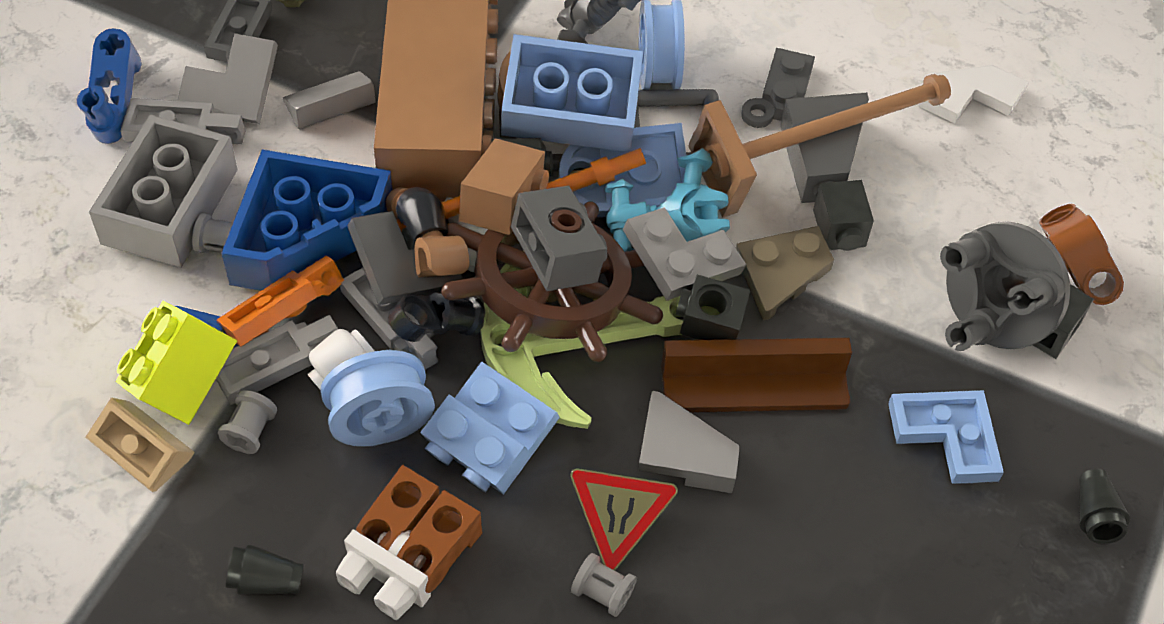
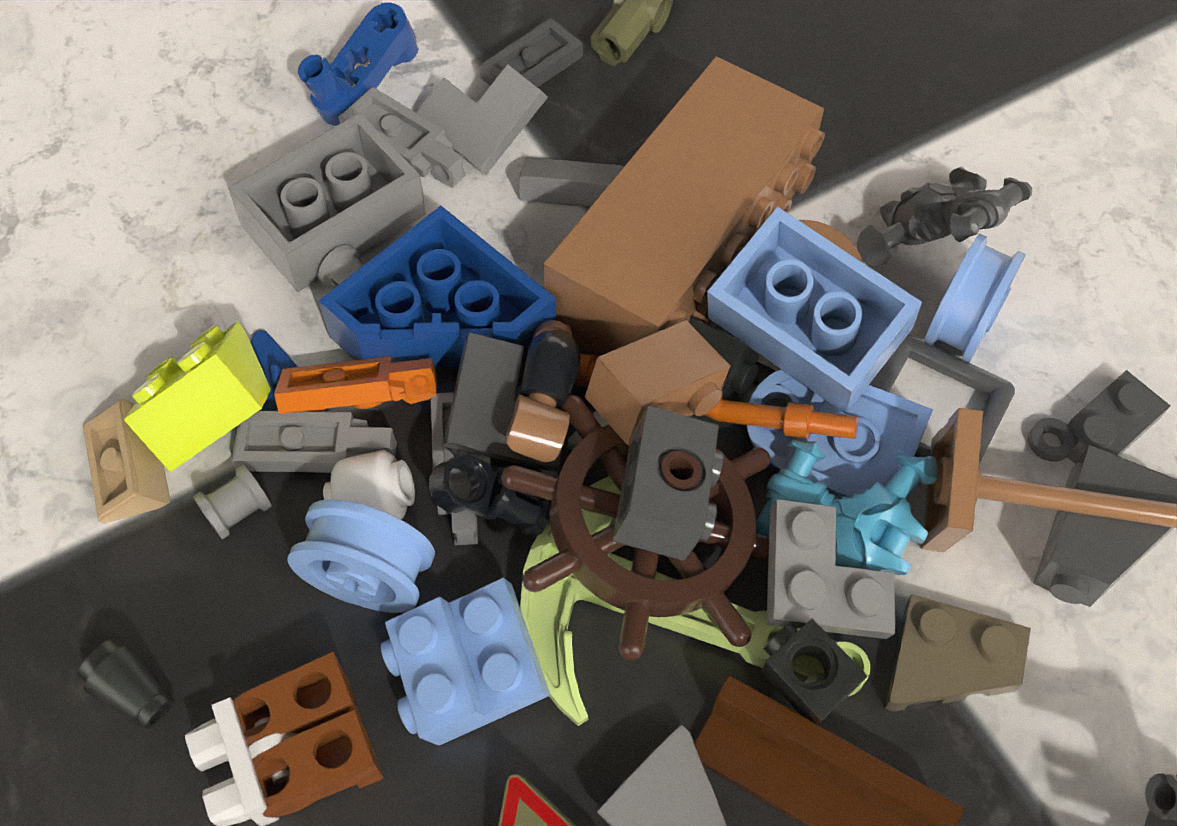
camera: 35 degrees right, 5 degrees up
(843, 214) = (1071, 633): pearl dark grey brick -> none

